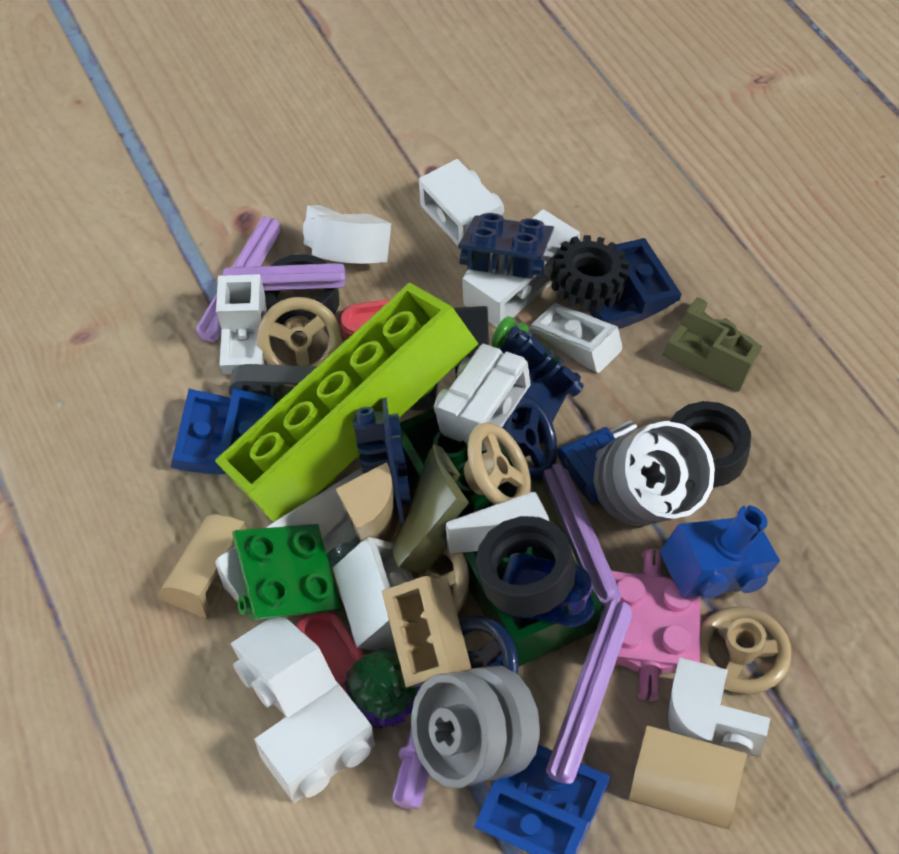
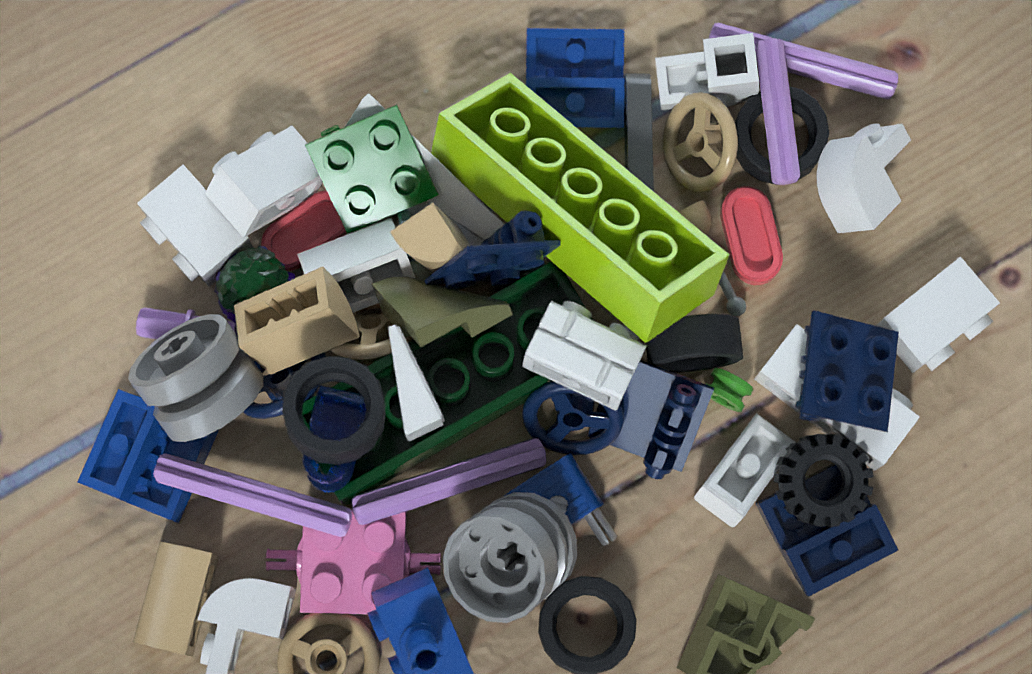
camera: 80 degrees right, 25 degrees up
(195, 578) = (393, 80): tan brick -> none
(490, 469) = (481, 369): tan piece -> none

